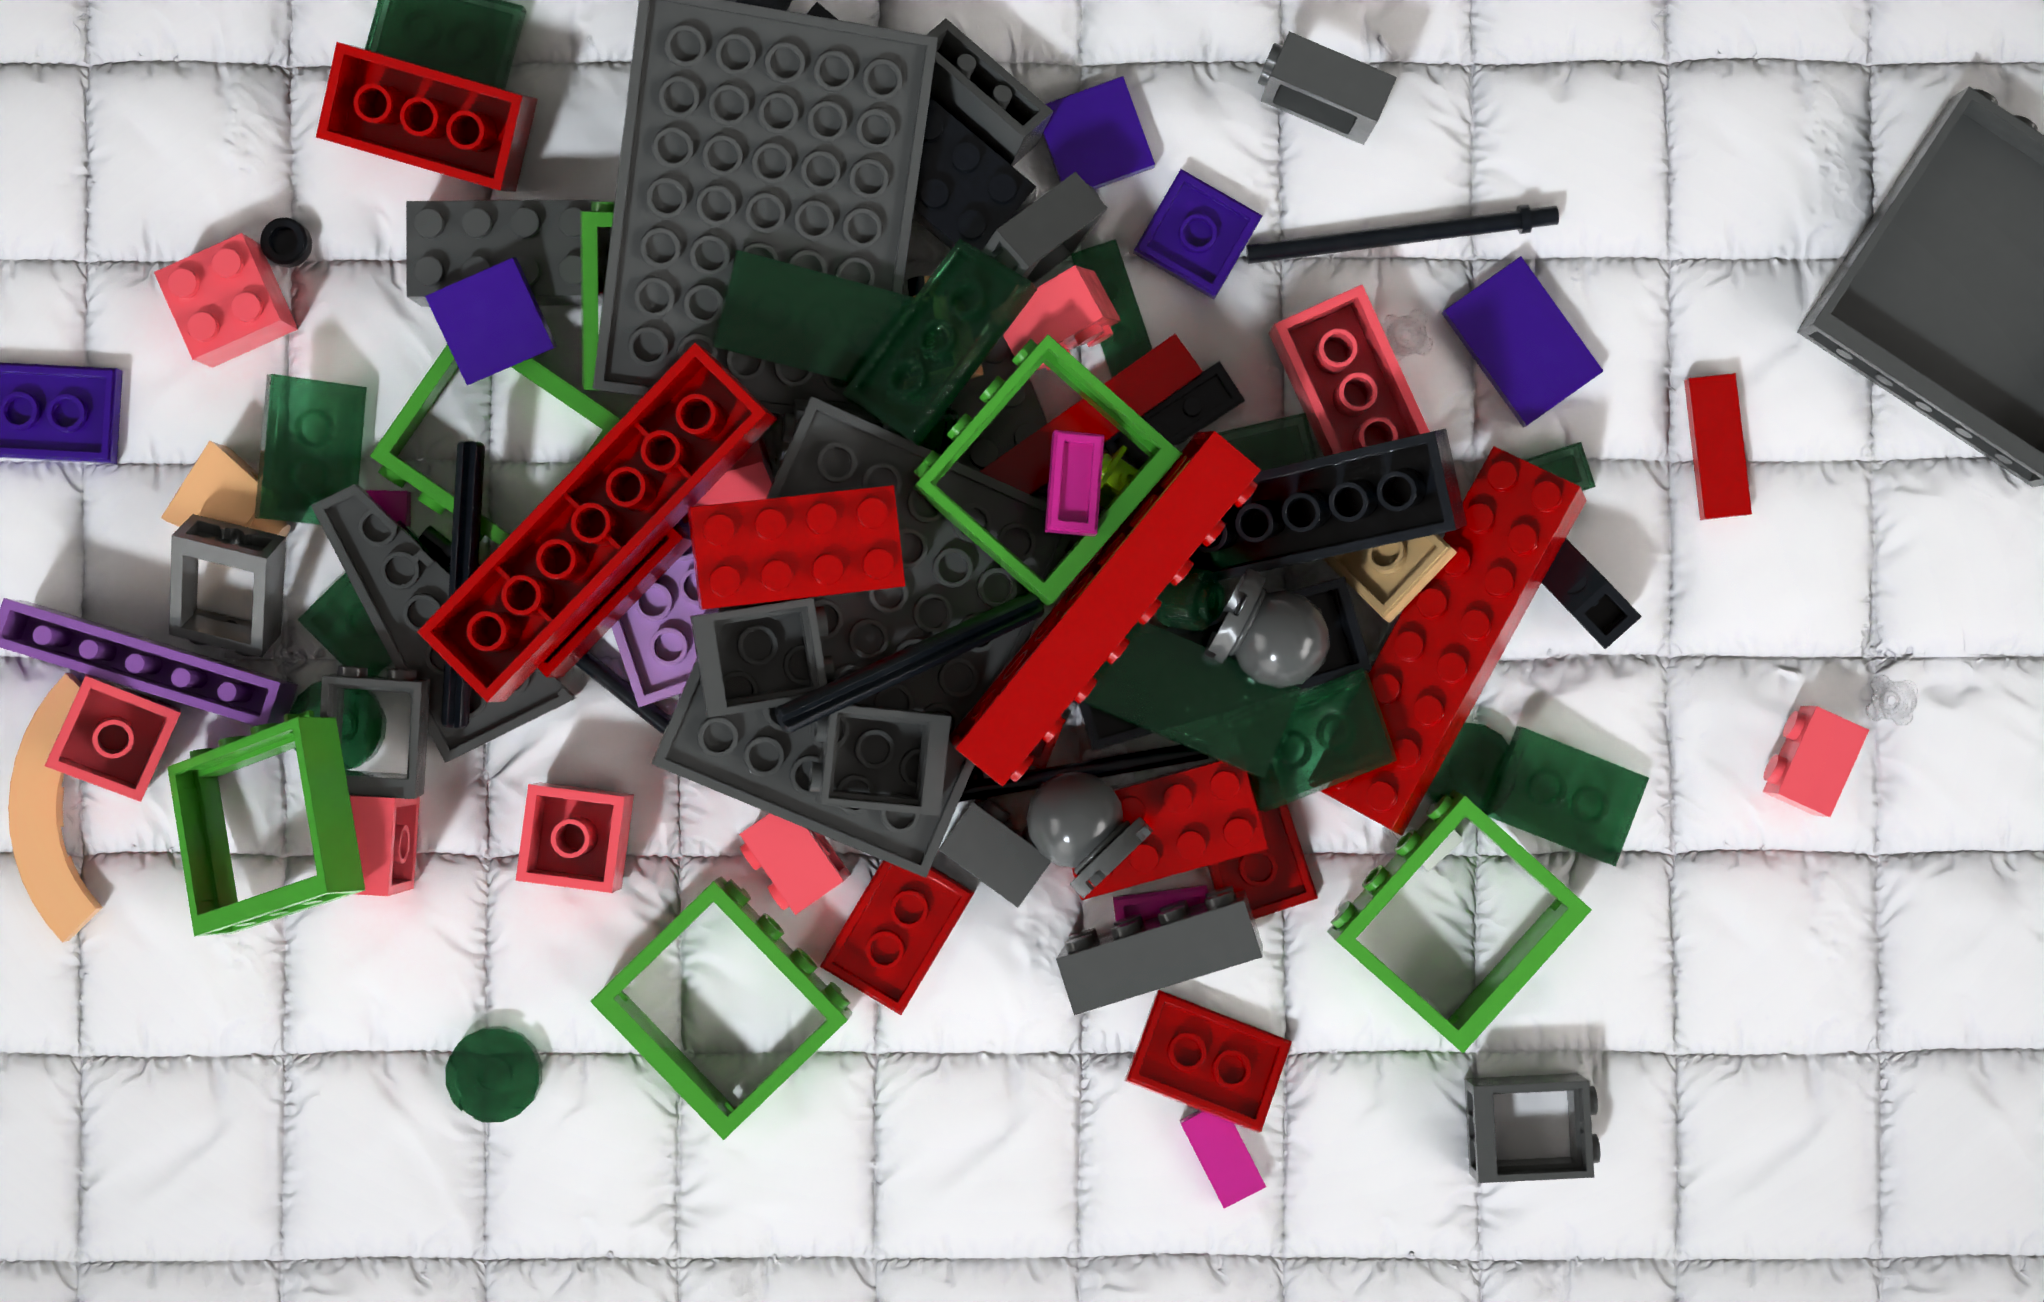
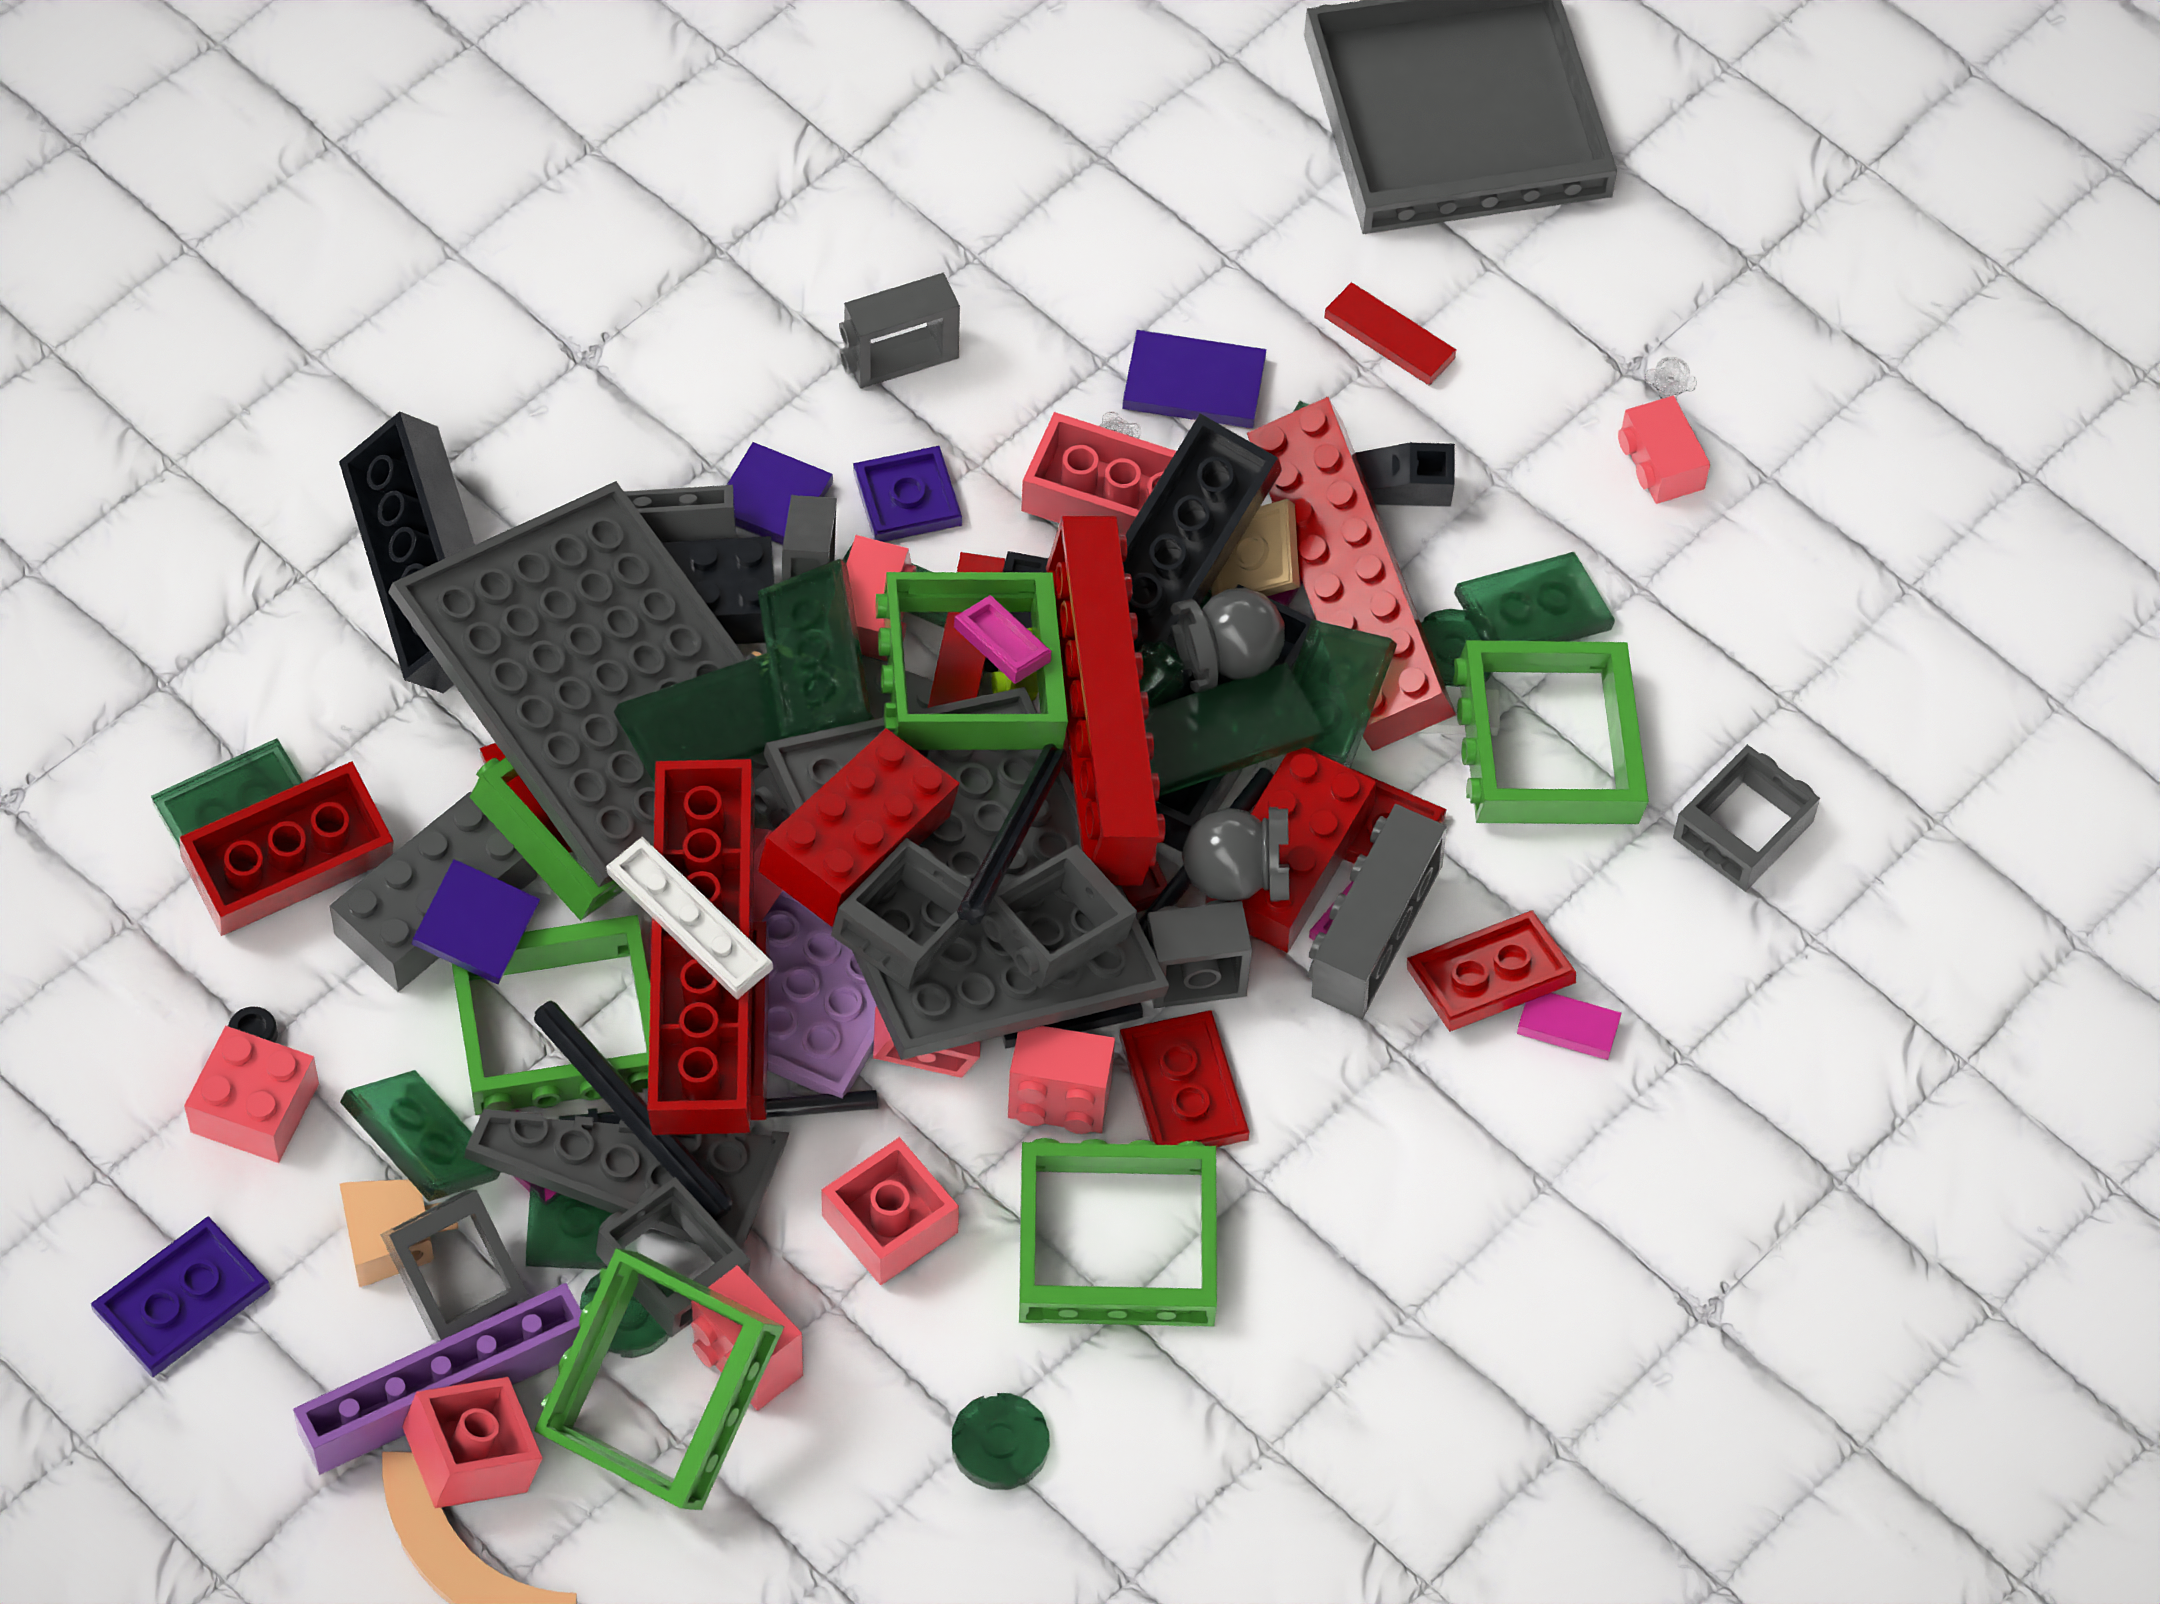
camera: 50 degrees left, 30 degrees down
(589, 505) = (689, 918): none -> white tile
(1522, 220) = (1111, 311): black bar -> none

